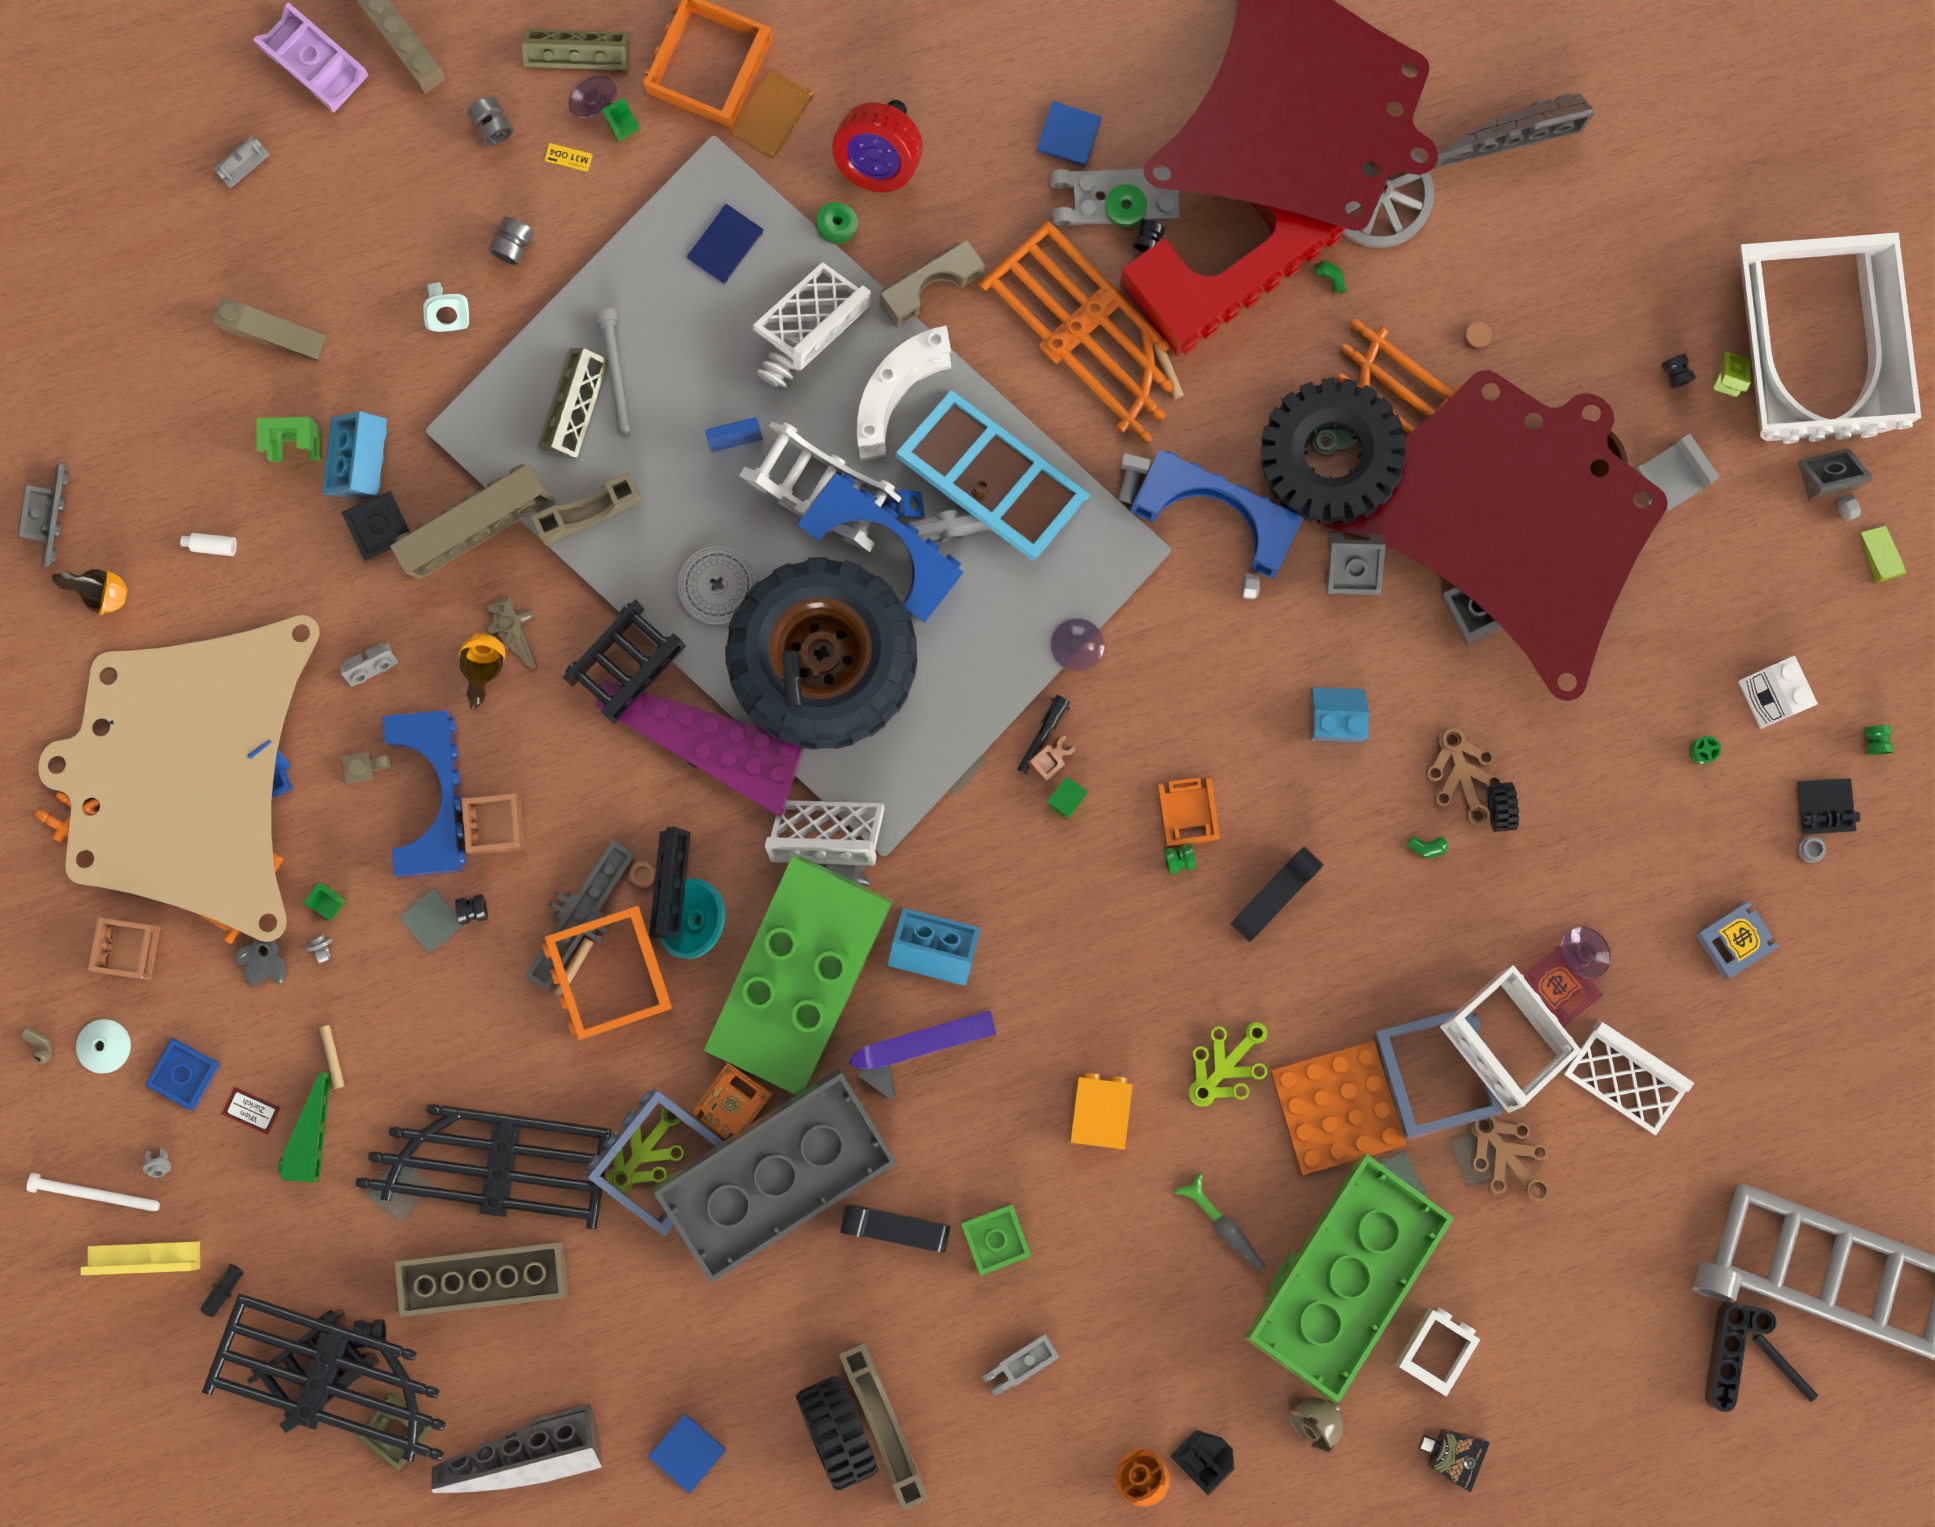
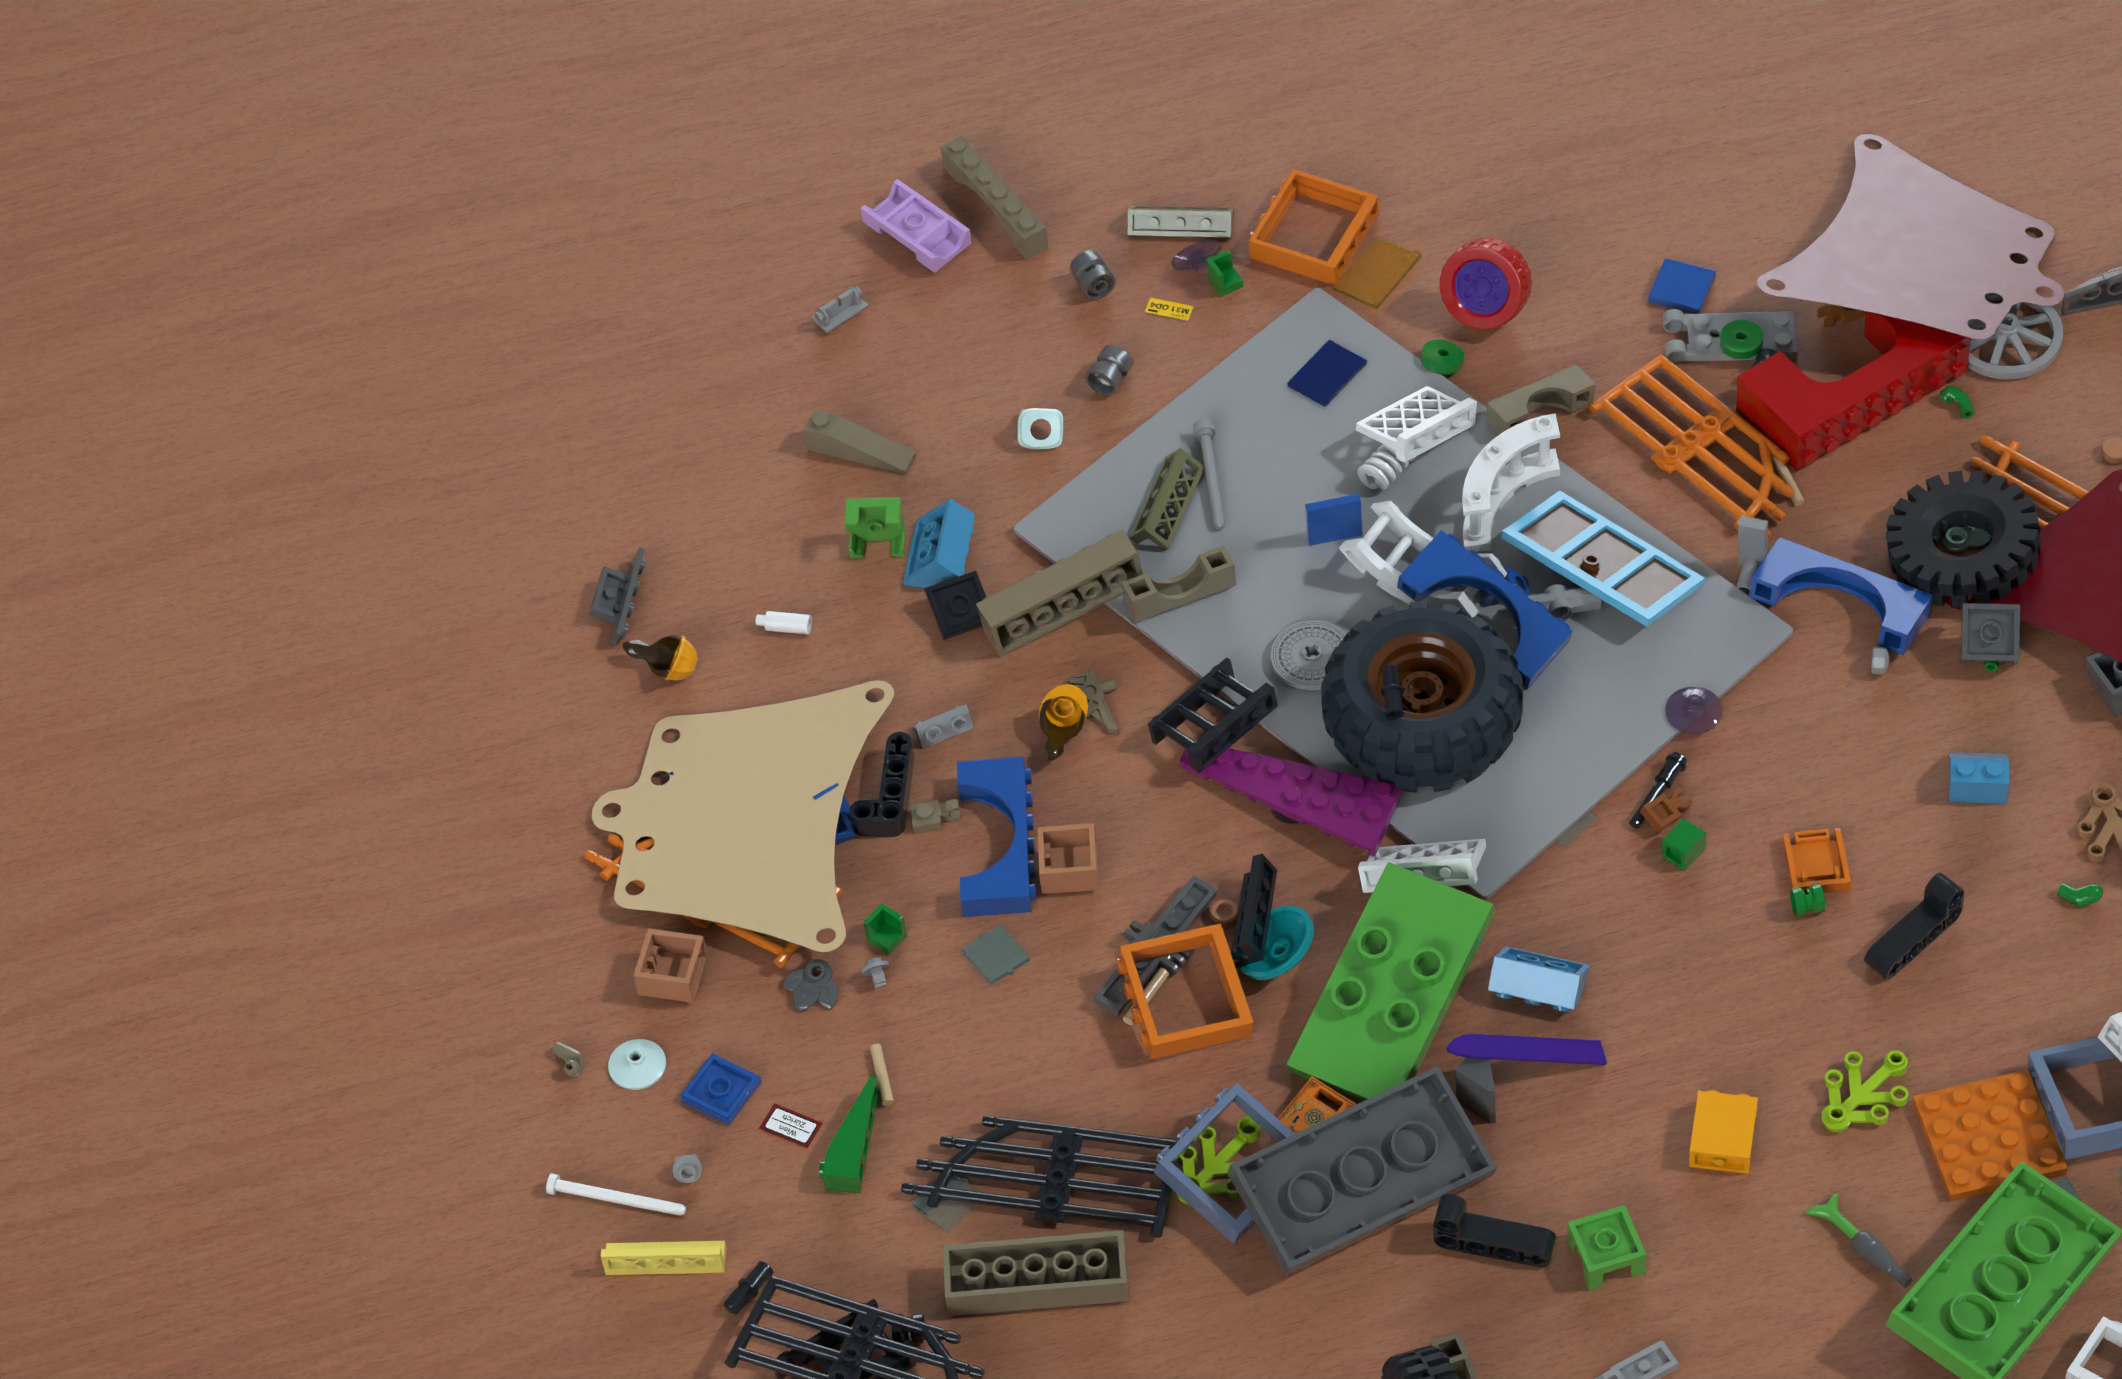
camera: 10 degrees right, 30 degrees down
(320, 736) = (874, 817): none -> black beam
(471, 909) = (1041, 938): black wheel -> none

